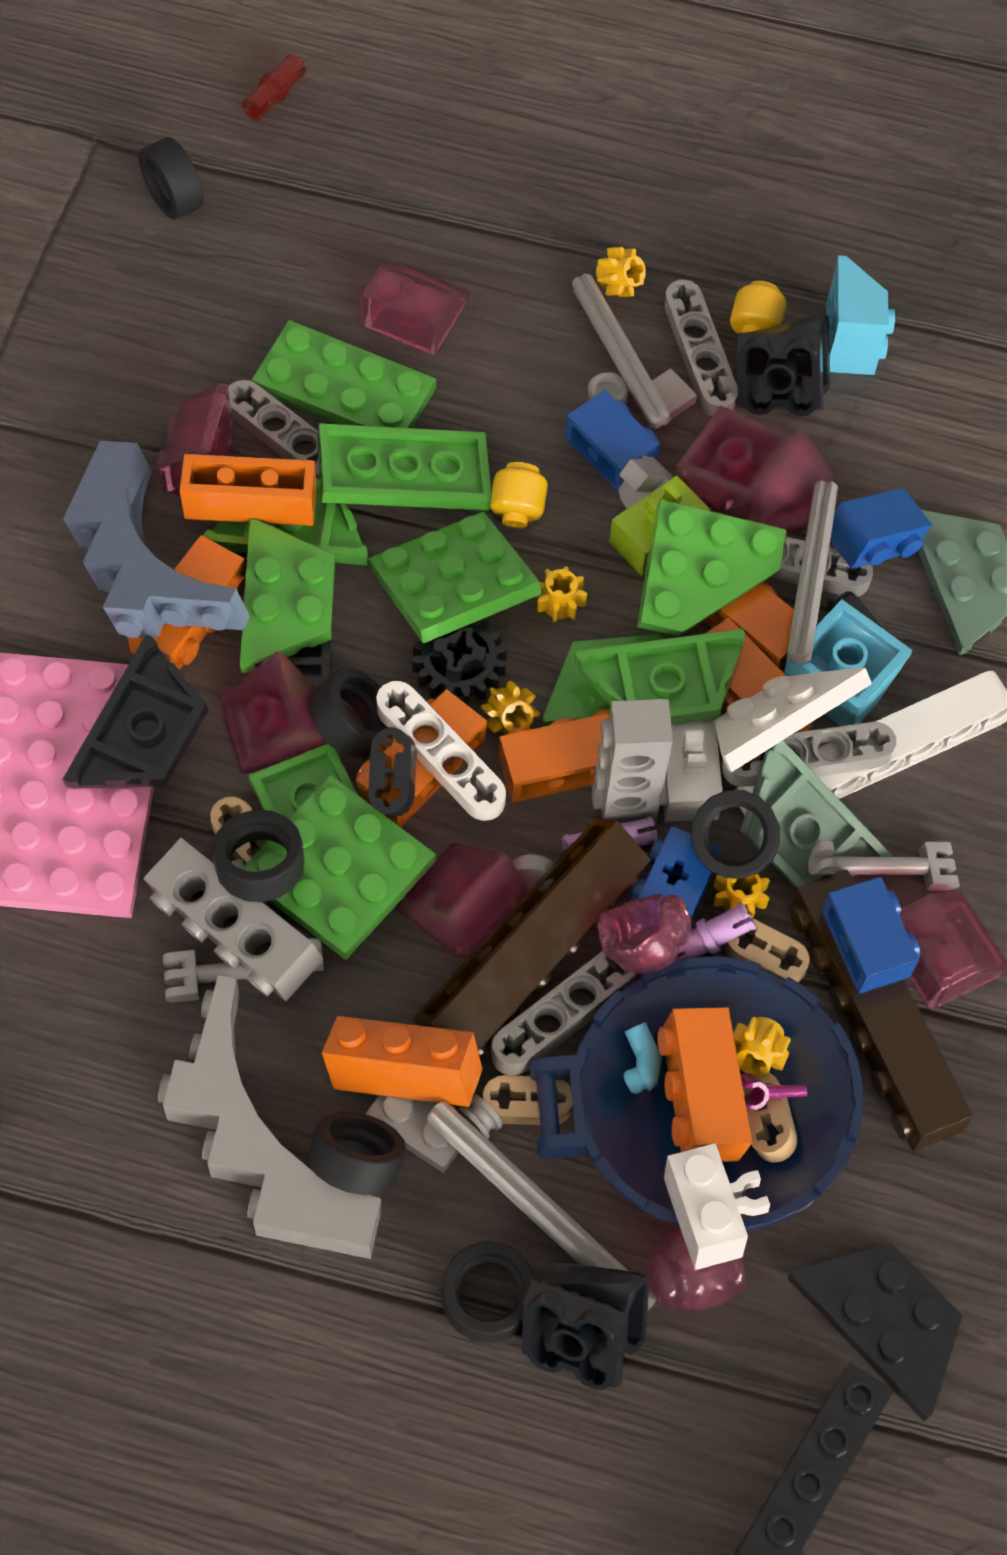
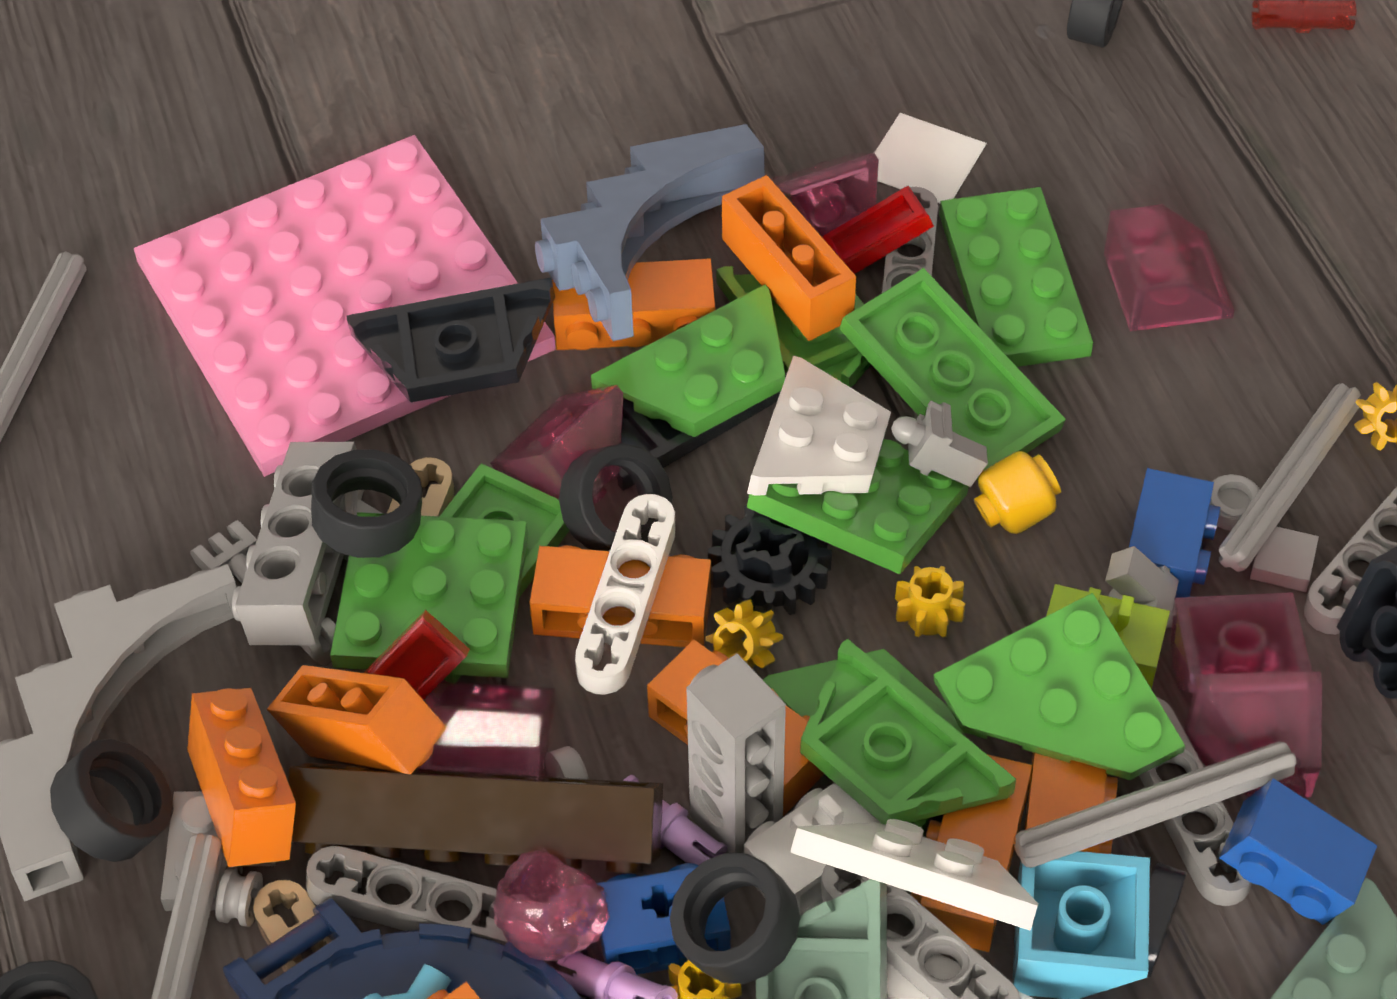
camera: 60 degrees right, 10 degrees down
(197, 363) = (926, 157): none -> white sticker
(252, 423) = (879, 230): none -> red tile
(395, 915) = (421, 655): none -> red tile
(403, 772) = (560, 562): black beam -> none
(405, 566) = (820, 436): none -> white wing
(420, 963) = (357, 718): none -> orange brick
(463, 509) = (938, 448): none -> light grey piece

